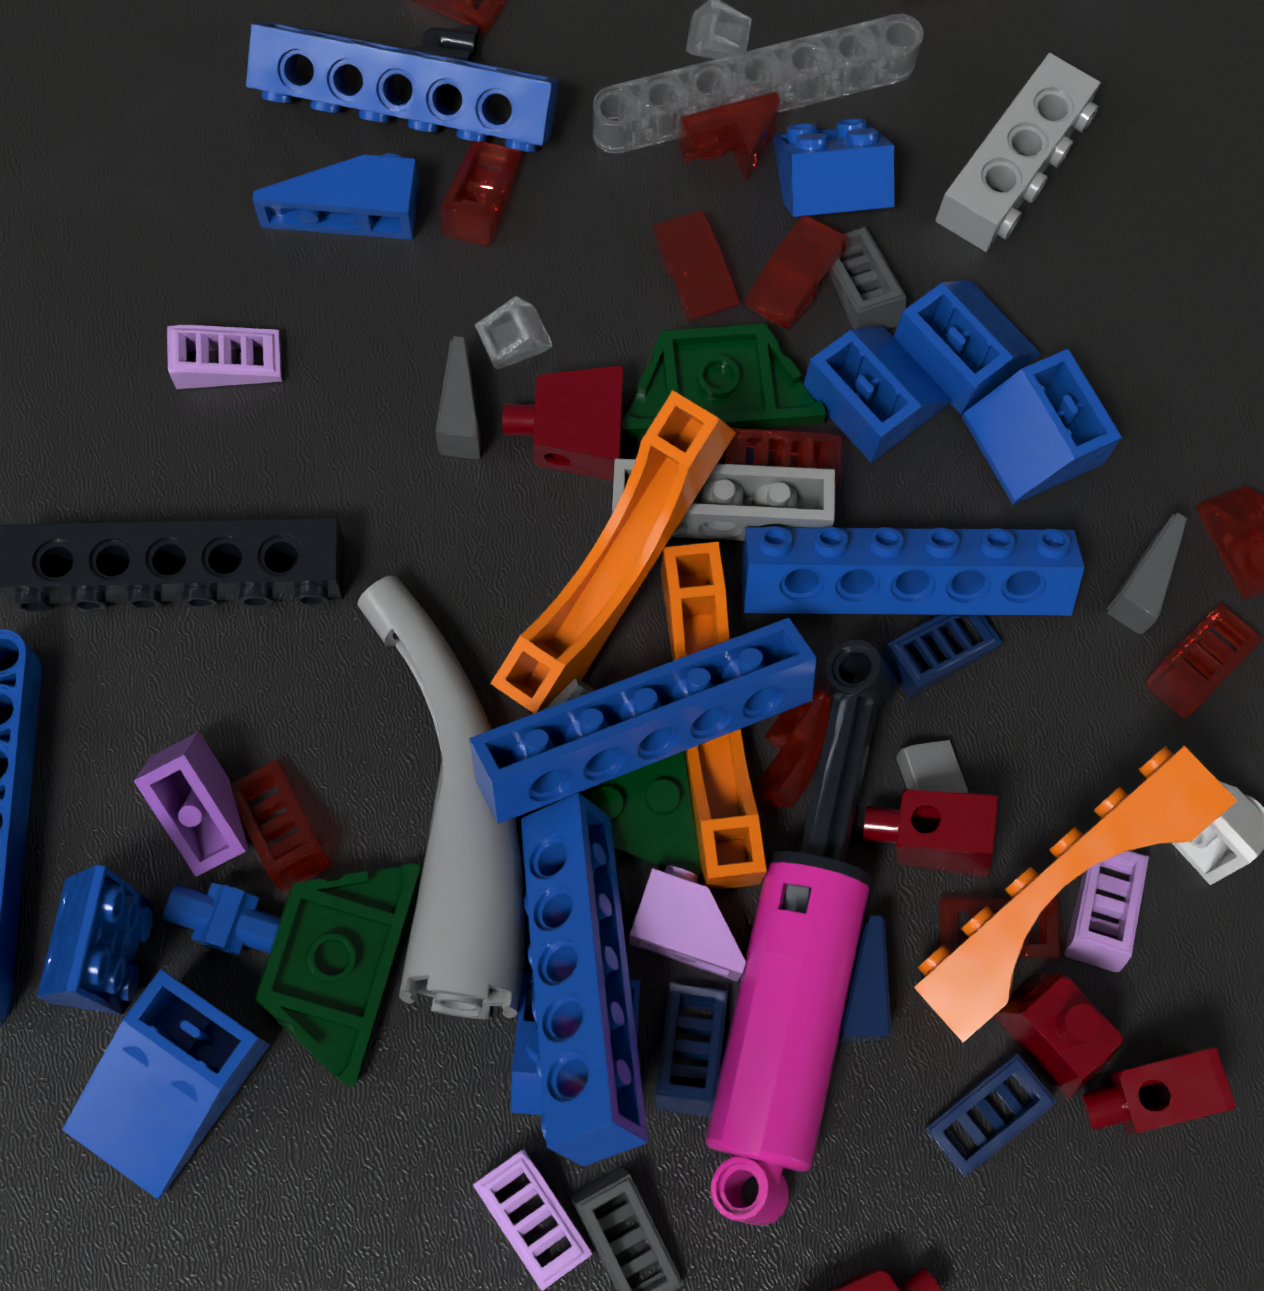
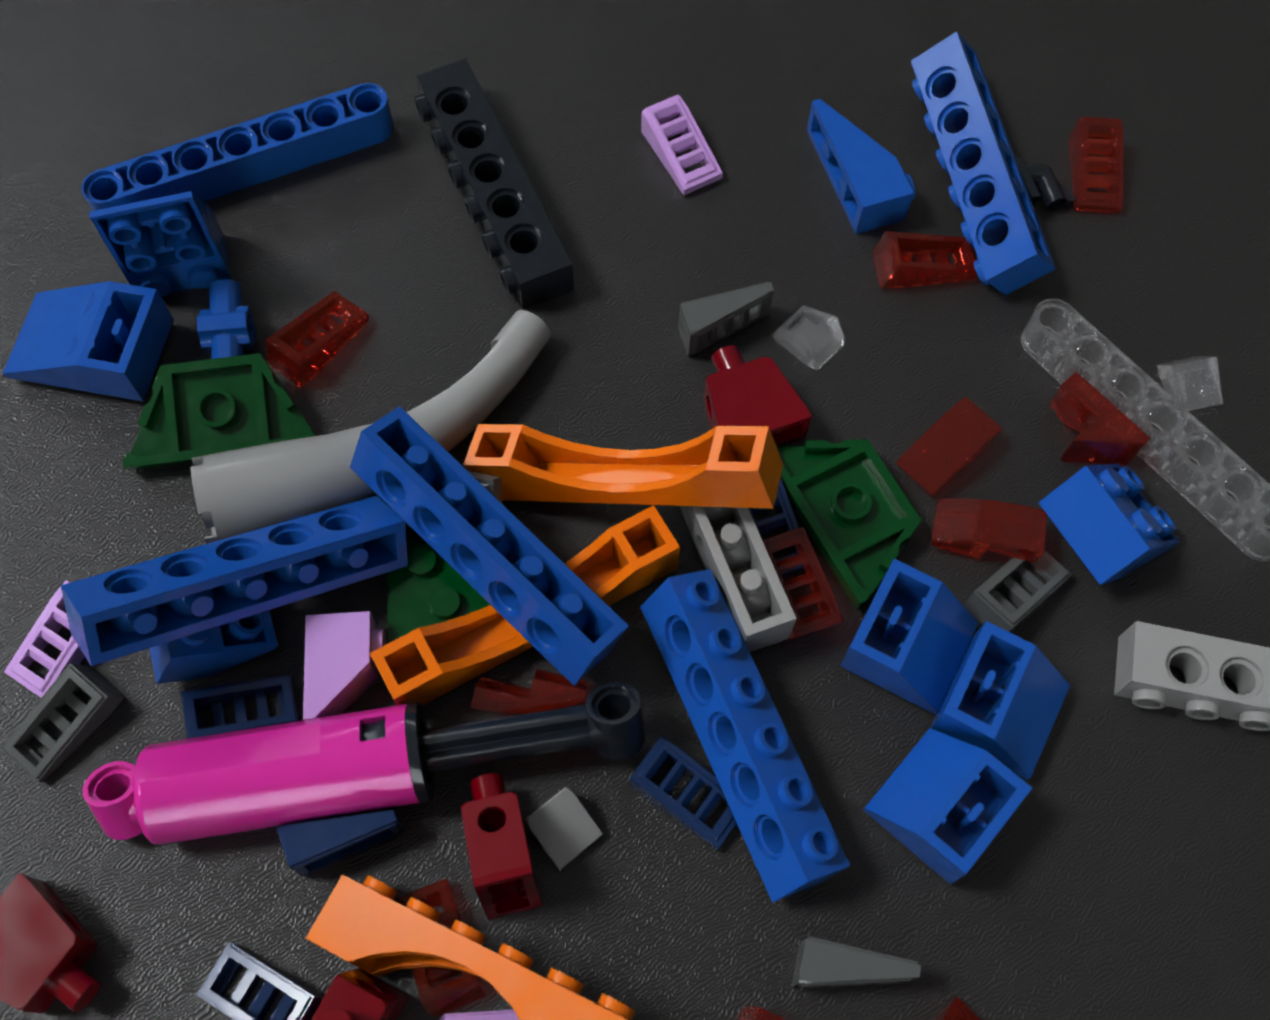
camera: 70 degrees right, 5 degrees down
(194, 803) = (305, 266): medium lavender slope -> none

